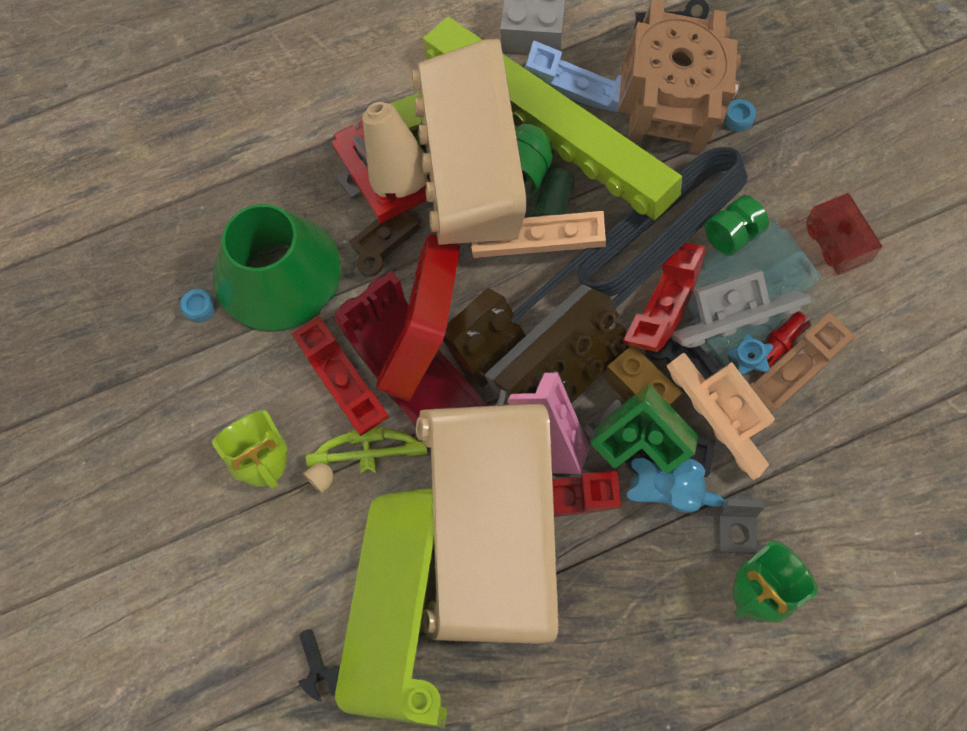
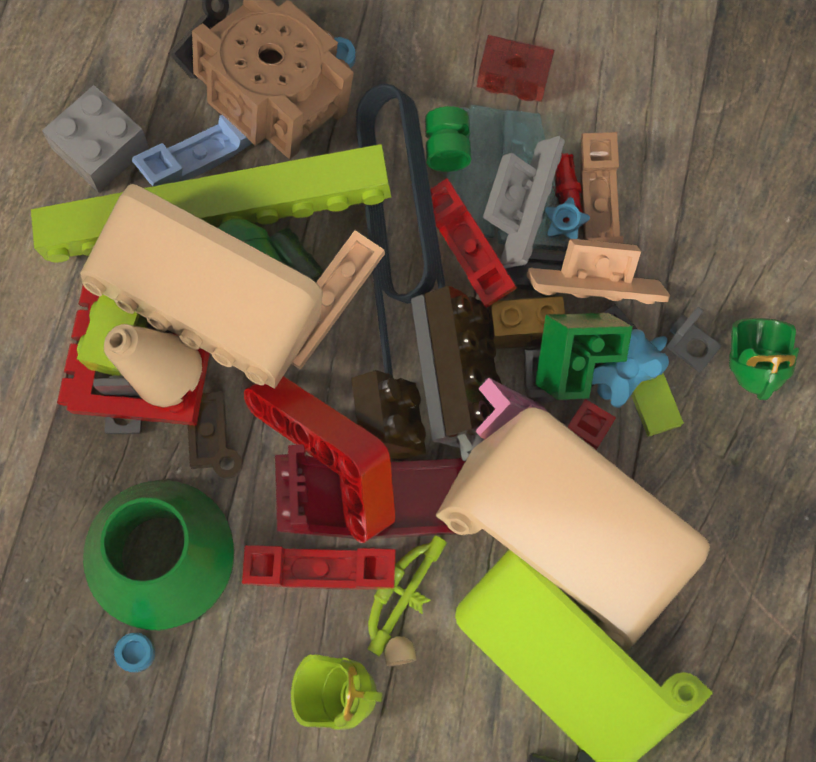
camera: 65 degrees left, 5 degrees up
(662, 533) = (656, 406): none -> lime tile

